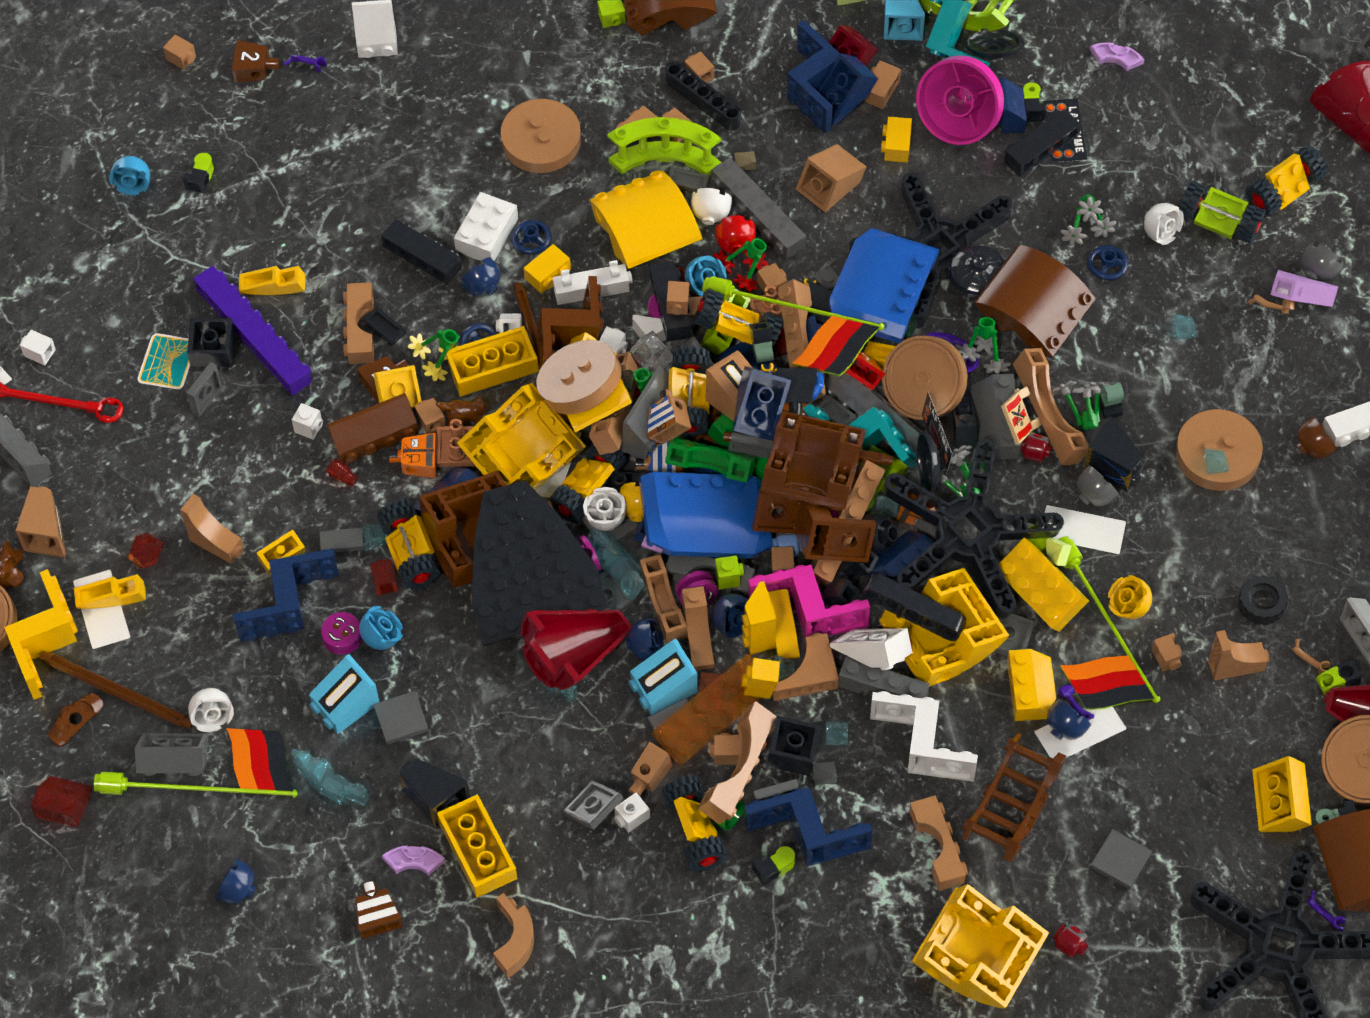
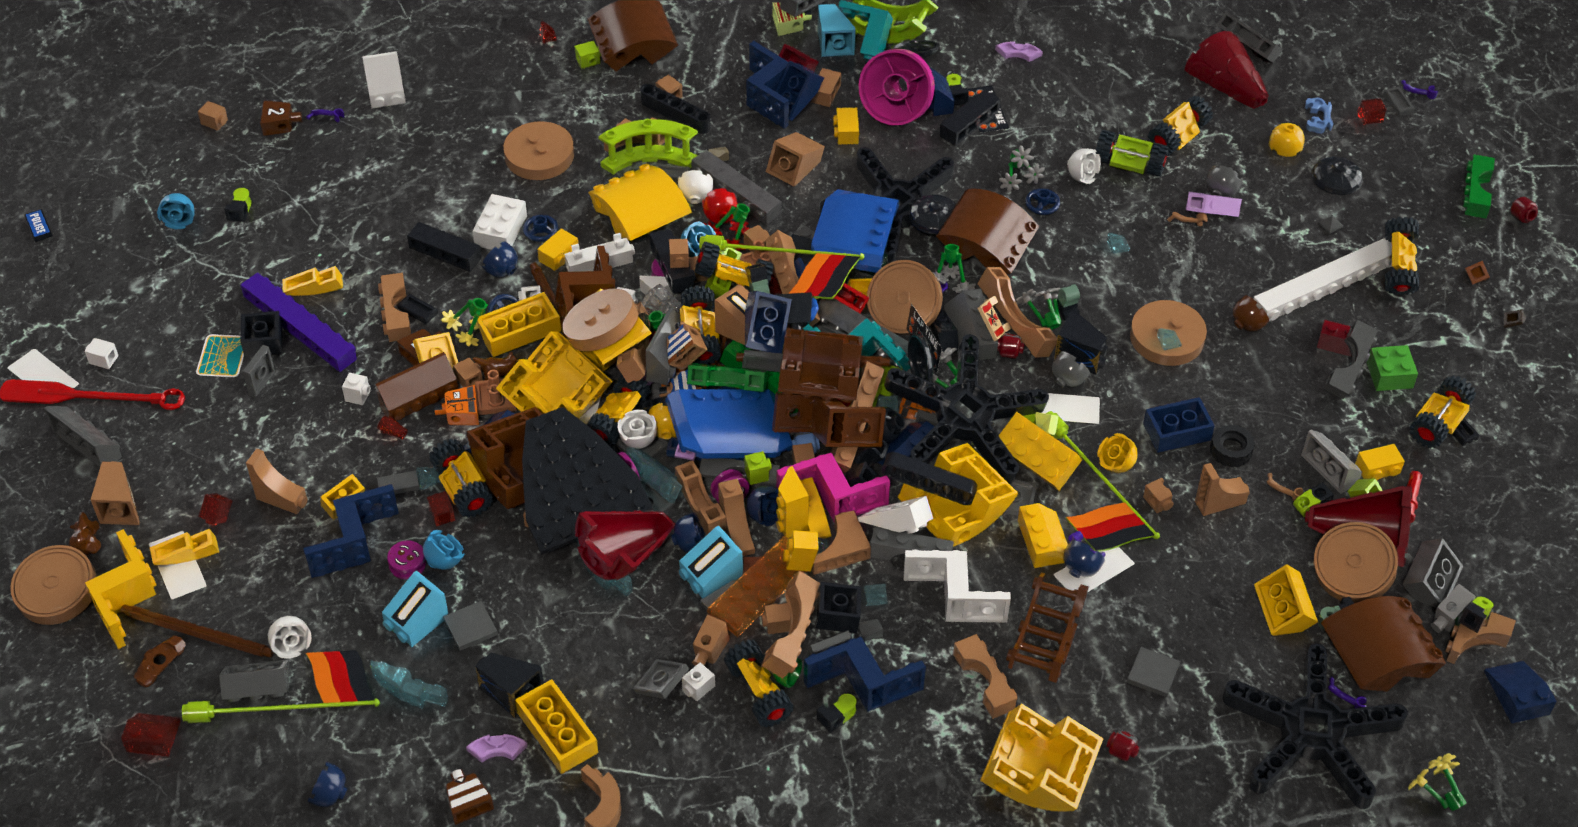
camera: 10 degrees left, 10 degrees down
(1206, 569) = (1178, 424): none -> dark blue brick

